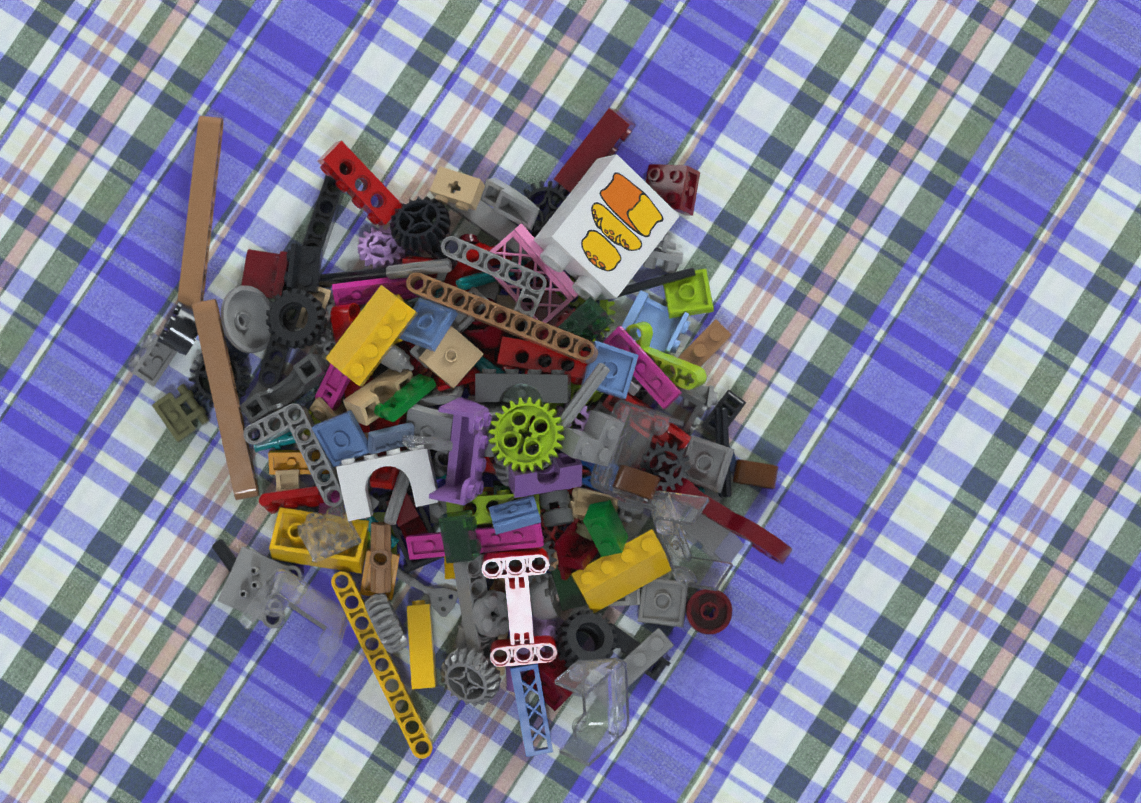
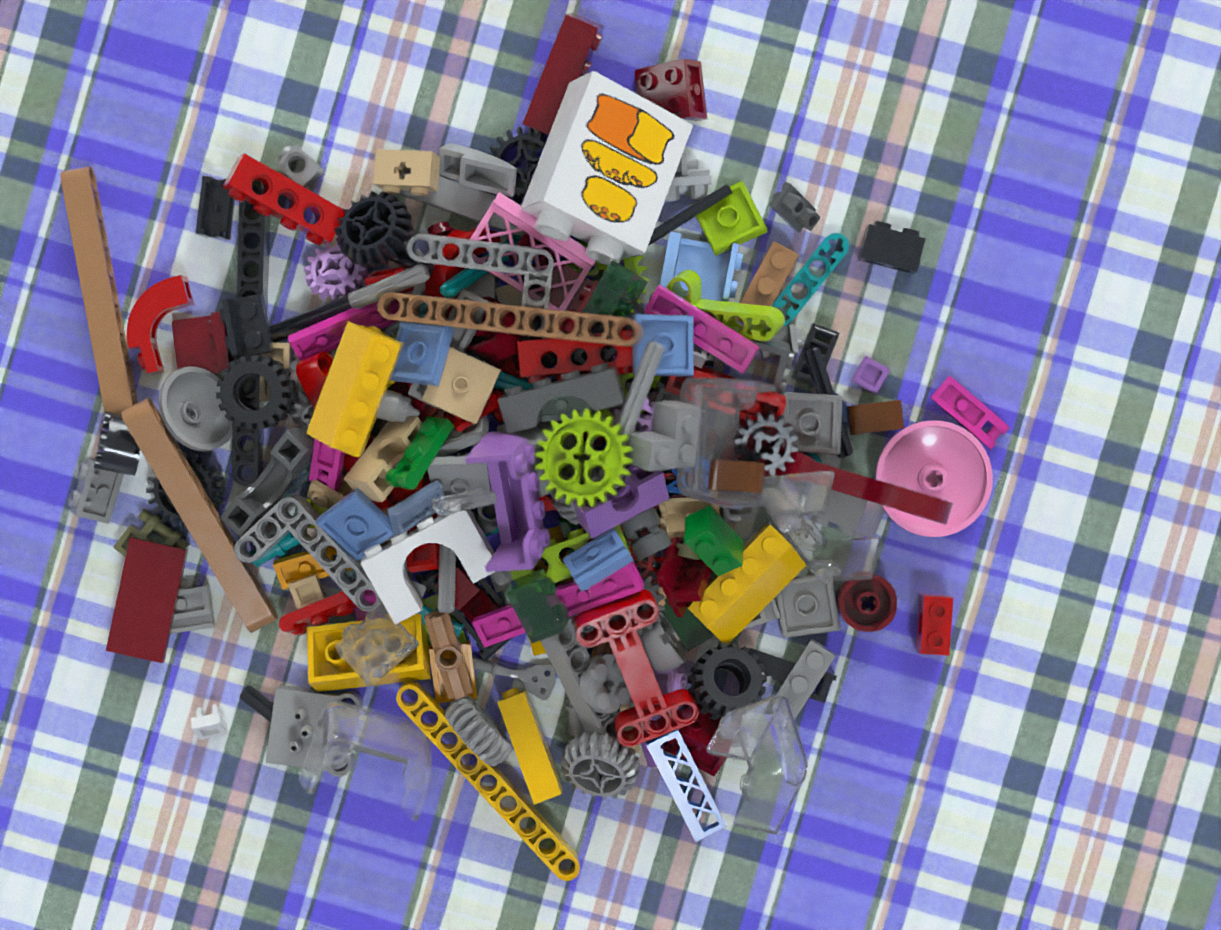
camera: 15 degrees left, 5 degrees up
(165, 452) = (147, 600): none -> dark red tile
(182, 561) = (209, 725): none -> white tile
(188, 468) = (193, 610): none -> light grey plate
(233, 237) = (148, 313): none -> red arch
(305, 177) = (215, 210): none -> black hinge
(385, 169) = (311, 171): none -> light grey brick
(735, 358) = (806, 278): none -> teal beam
(738, 300) = (794, 208): none -> dark grey hips
(755, 643) = (934, 624): none -> red brick
(760, 441) = (870, 375): none -> medium lavender tile
(796, 520) = (942, 463): none -> bright pink dish
(803, 350) = (891, 247): none -> black brick
(827, 491) = (969, 411): none -> dark pink plate

